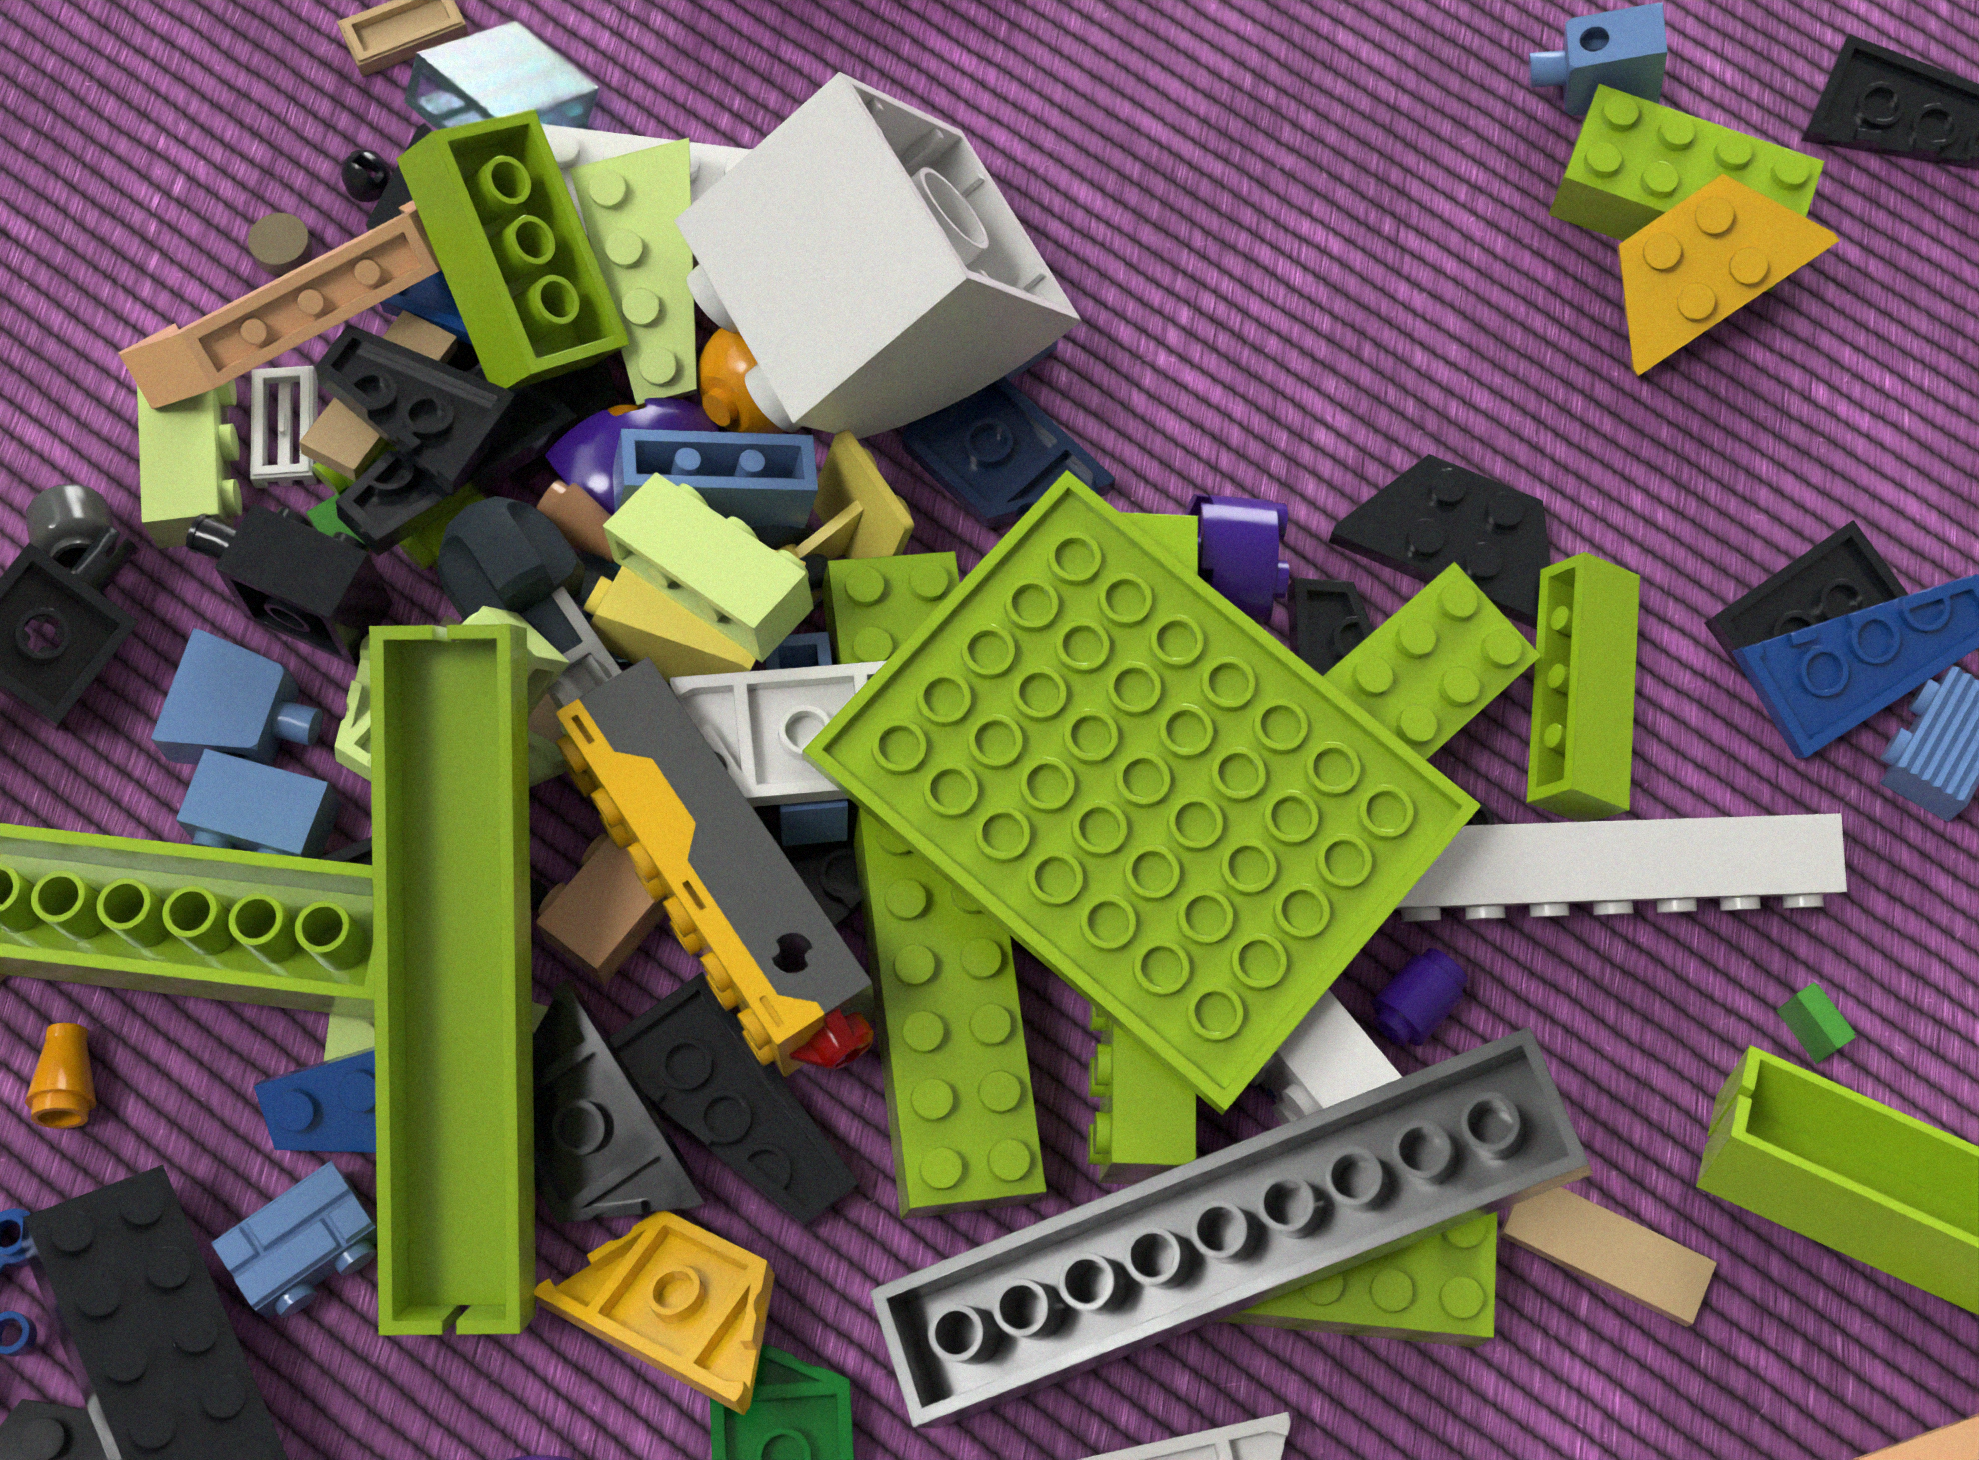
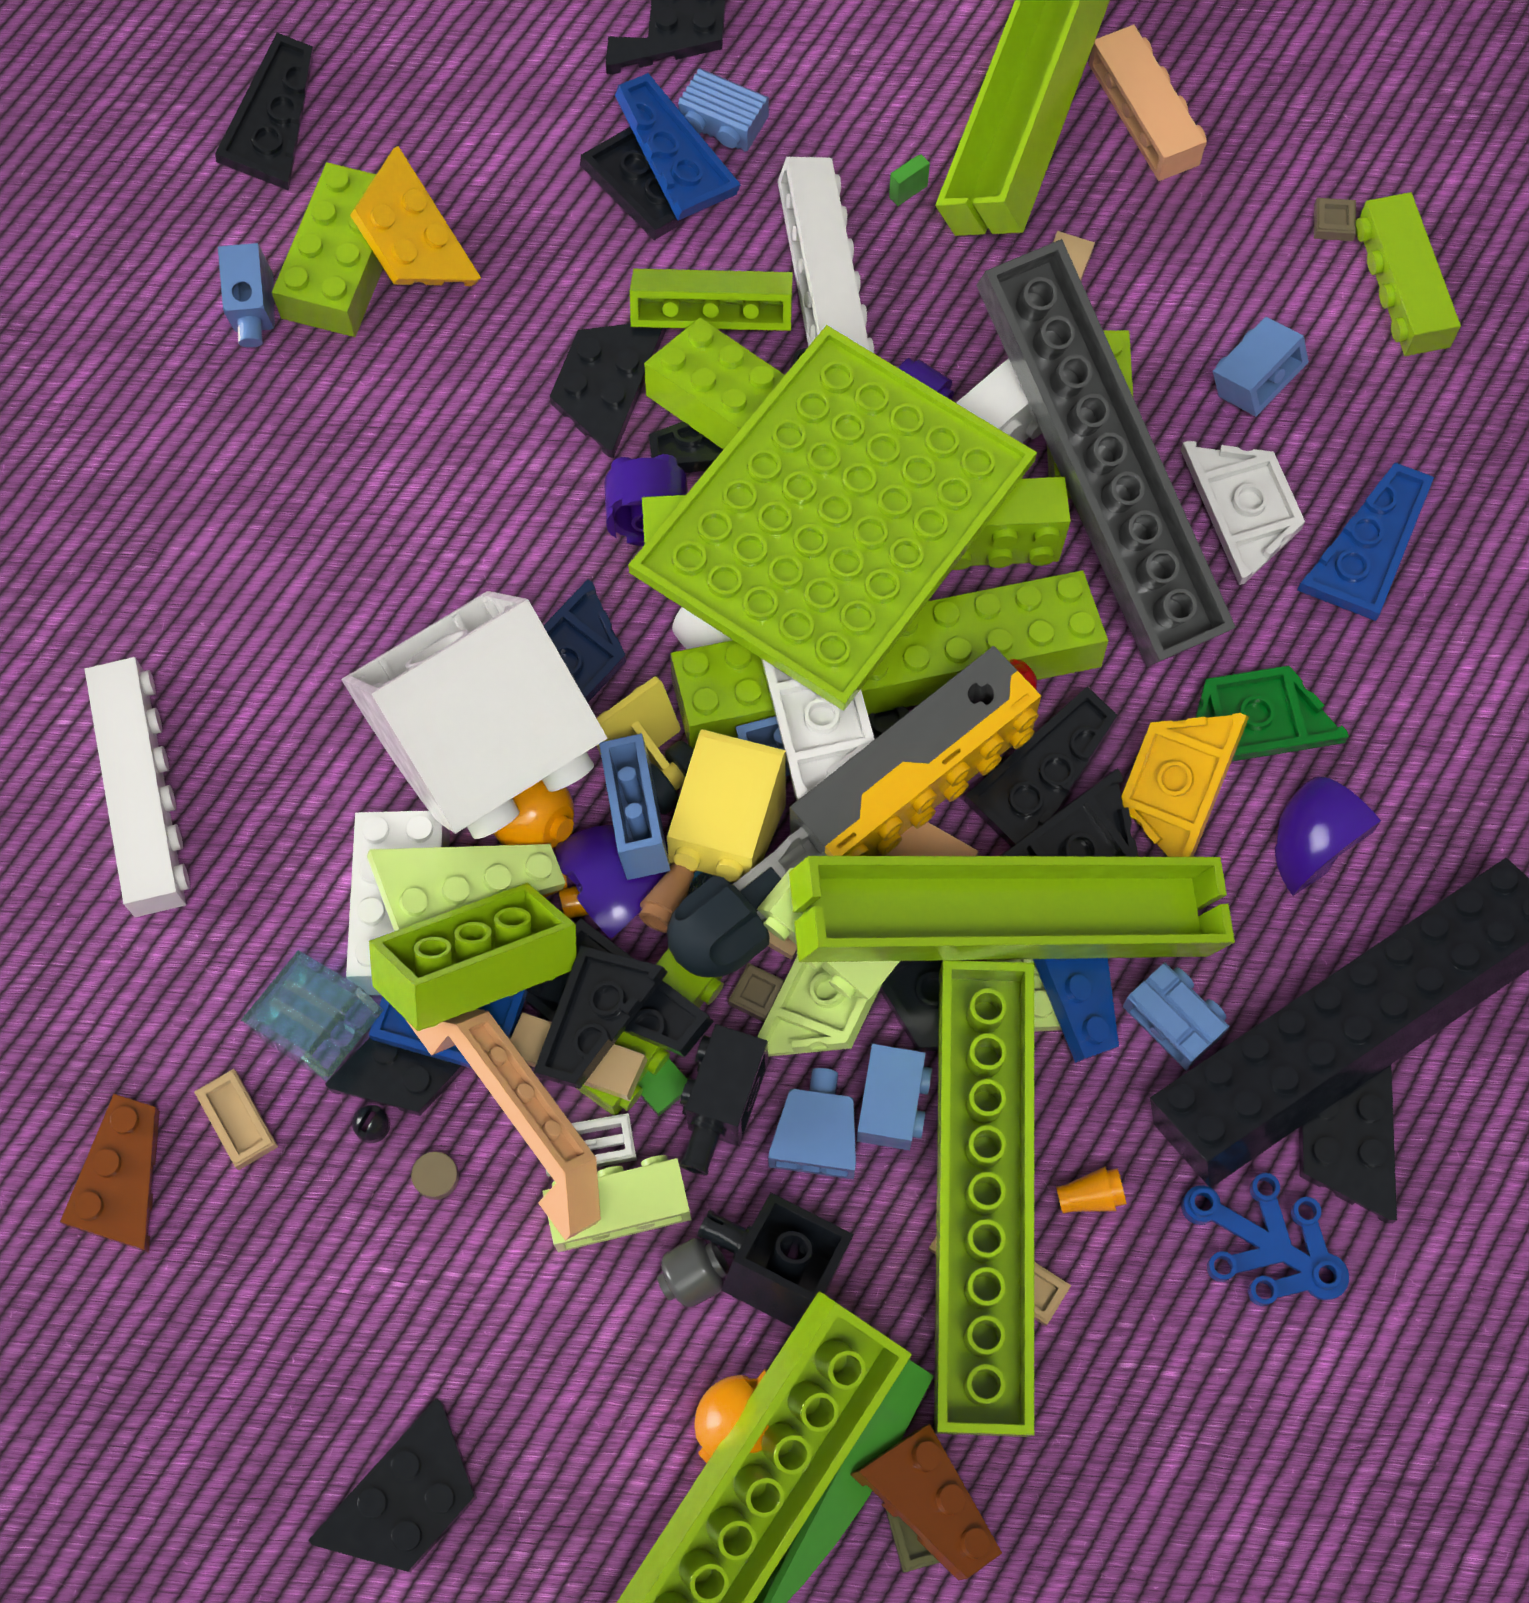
camera: 90 degrees left, 0 degrees up
(710, 565) = (716, 779): yellowish green brick -> none

